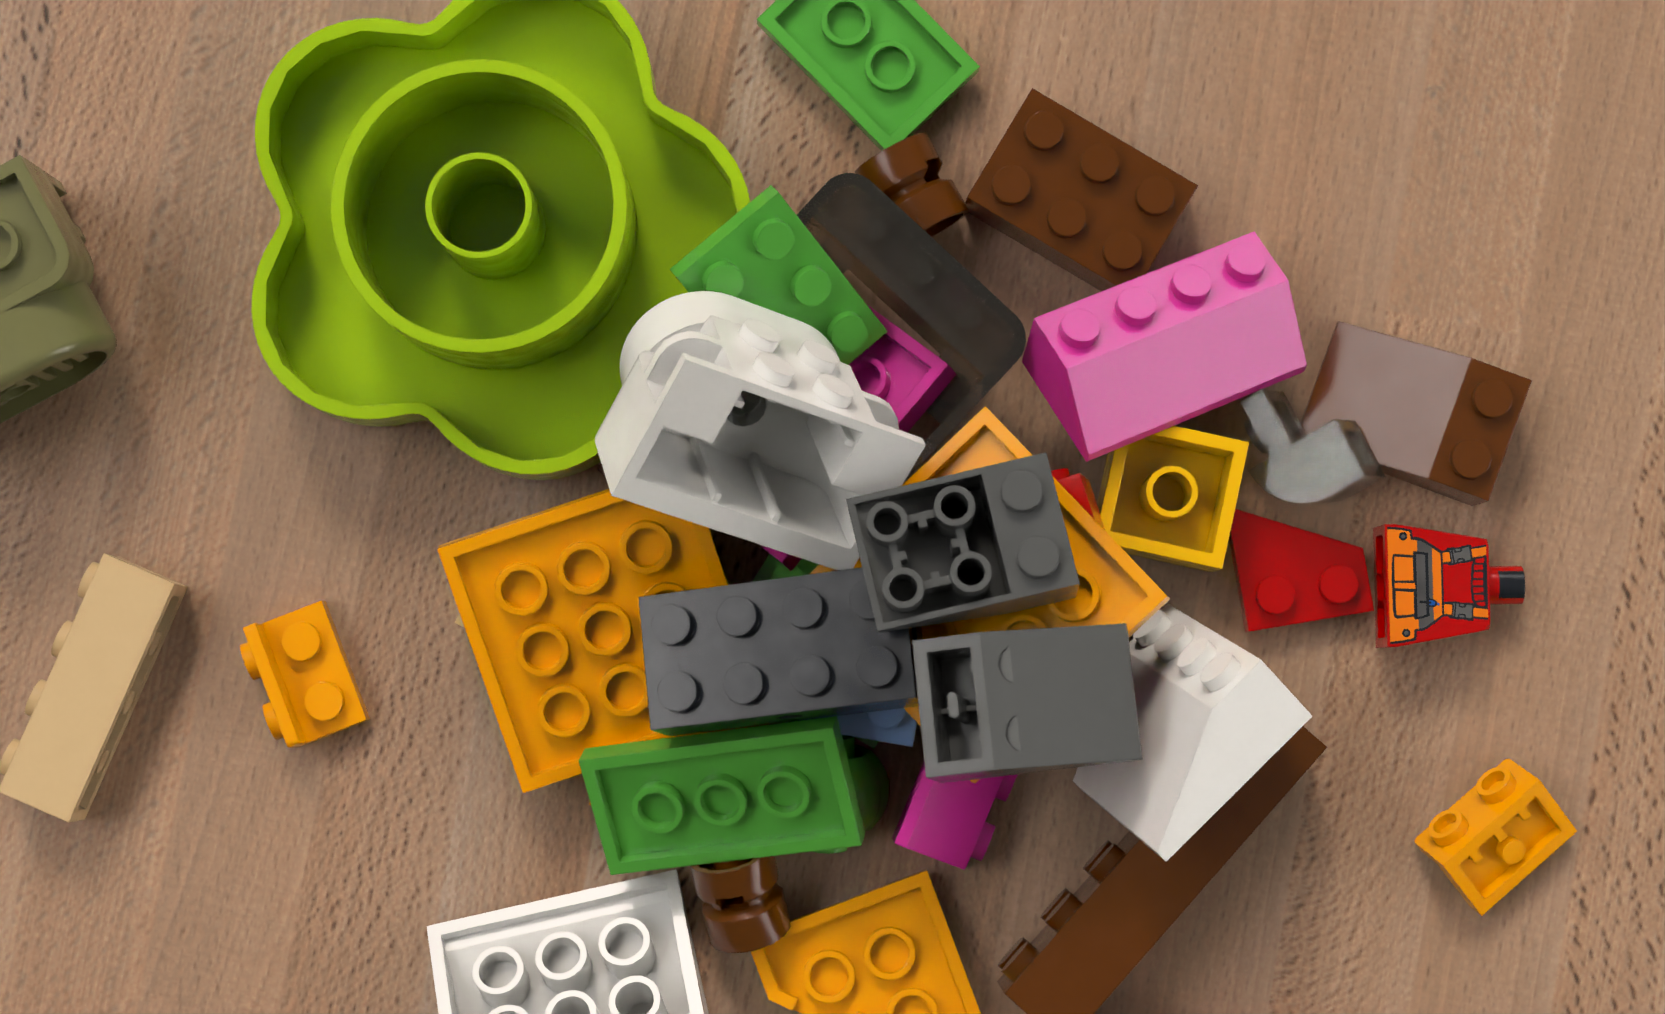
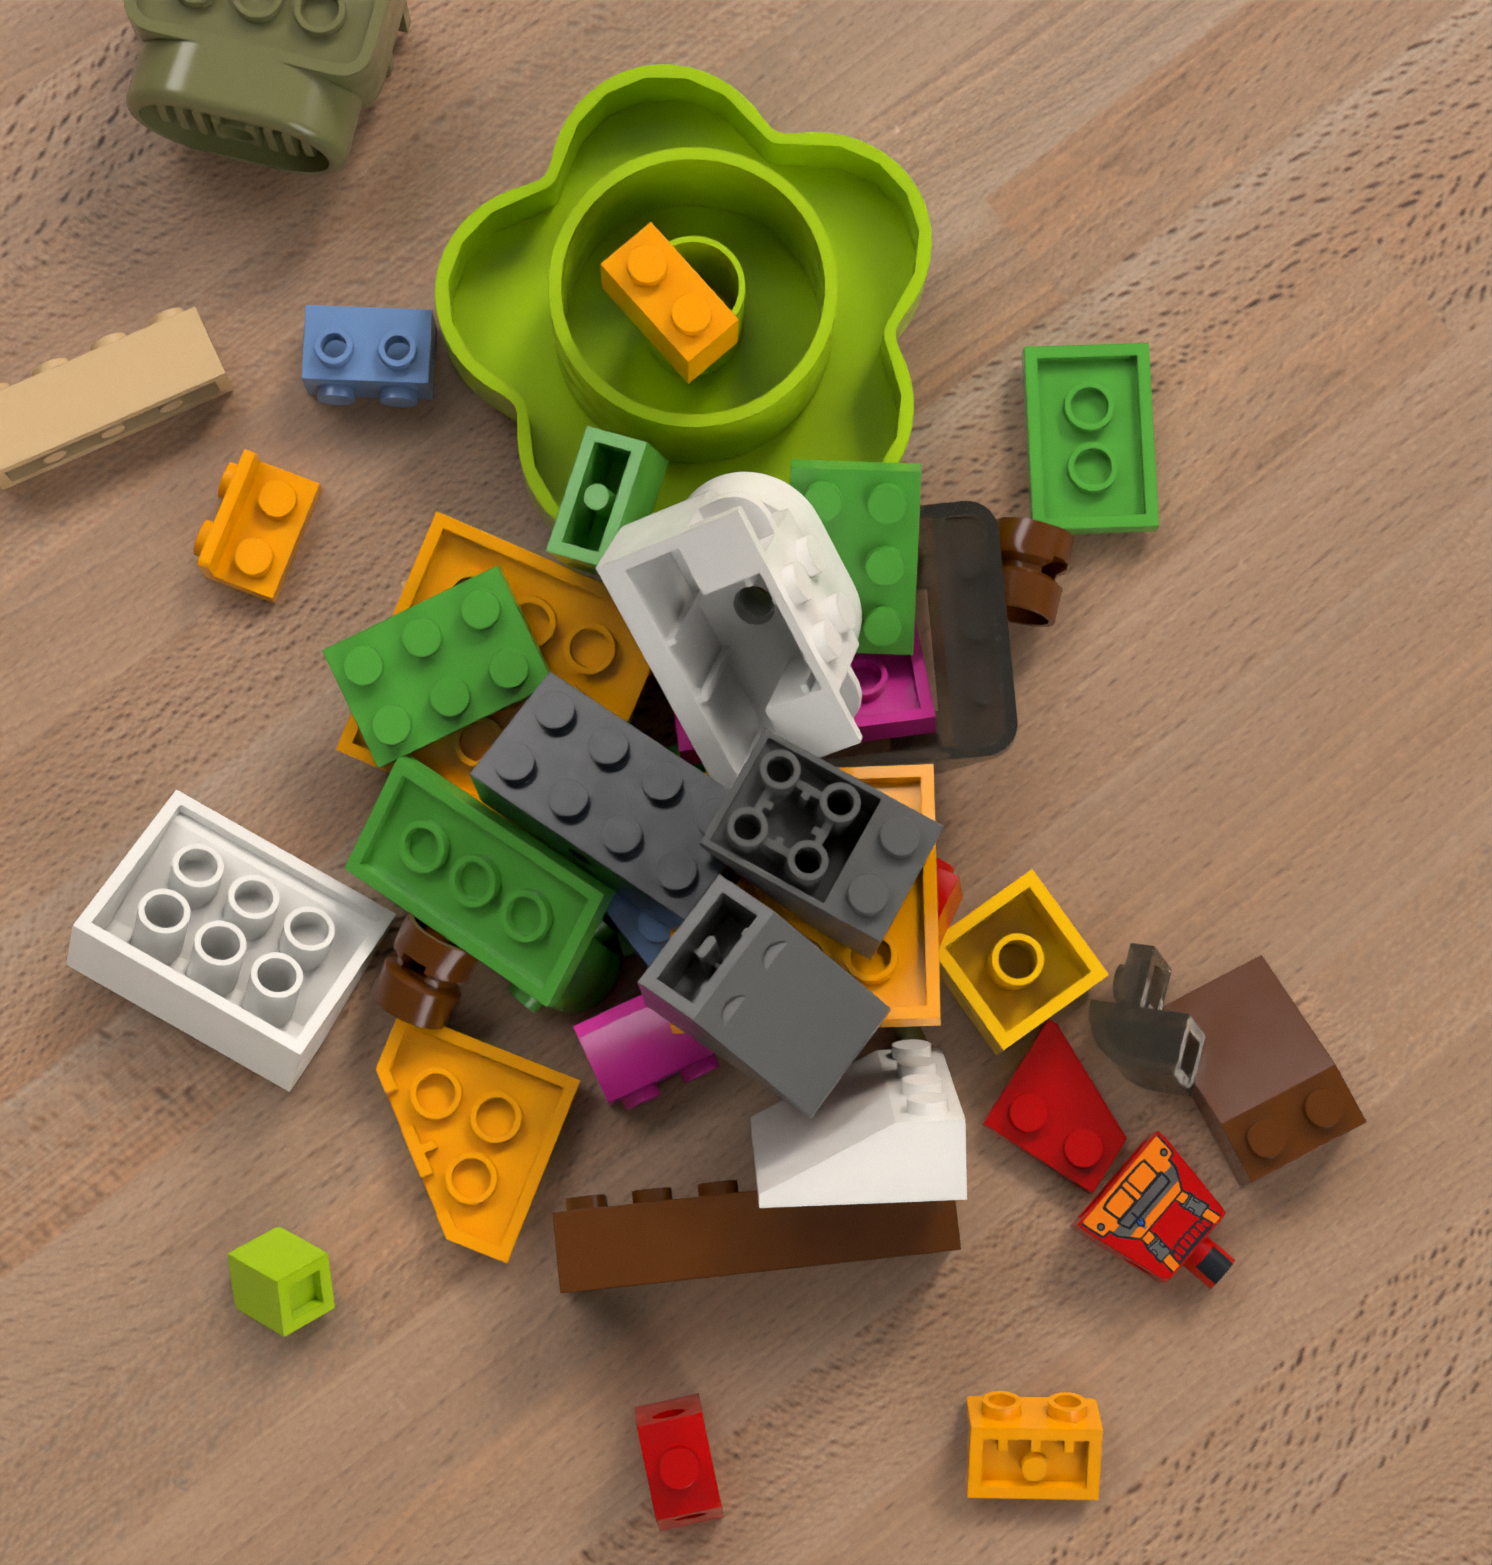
camera: 35 degrees right, 5 degrees down
(268, 469) = (369, 354): none -> medium blue brick
(475, 236) = (669, 302): none -> light orange brick
(546, 663) = (438, 666): none -> bright green plate
(558, 423) = (609, 487): none -> bright green brick
(1078, 195) = (1147, 686): reddish brown brick -> none
(1166, 346) = (1112, 848): slope -> none

